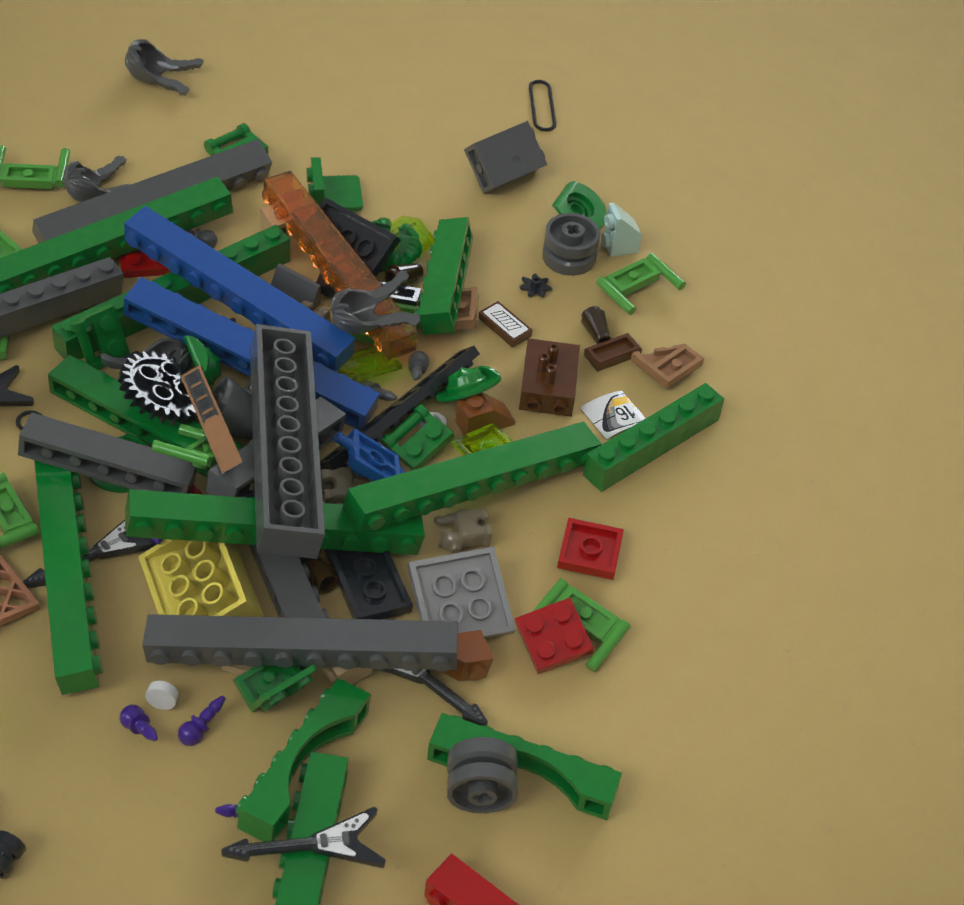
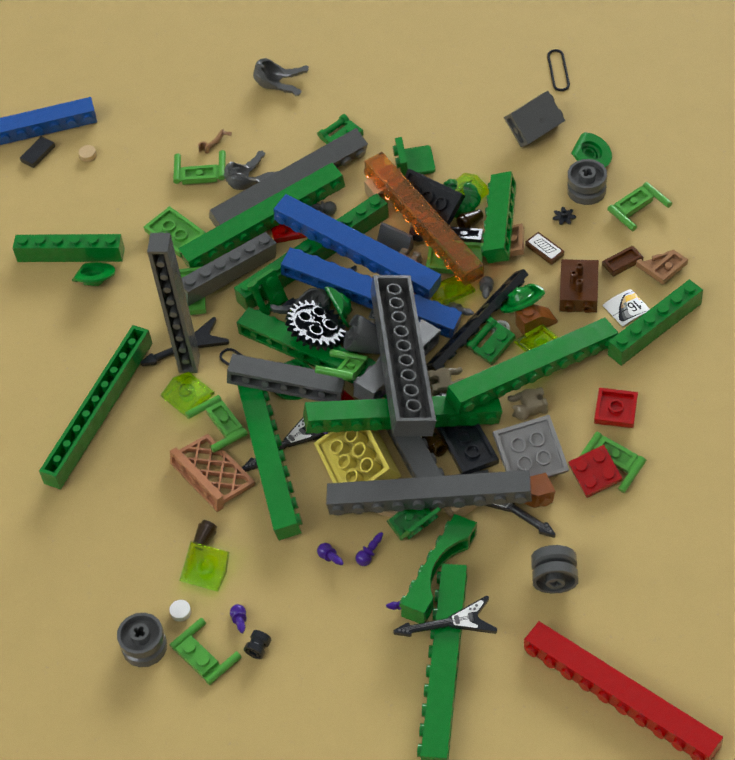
camera: 10 degrees right, 5 degrees up
(41, 140) = (204, 145): none -> medium nougat piece
(162, 695) = (342, 535): white tile -> none
(211, 419) = (350, 345): medium nougat sticker -> none
(354, 308) = (438, 252): dark grey hair -> none
(368, 456) = (460, 360): blue plate -> none
(585, 784) = (622, 568): green arch -> none
(596, 323) = (609, 241): dark brown cone -> none
(620, 232) = (622, 168): light aqua slope -> none

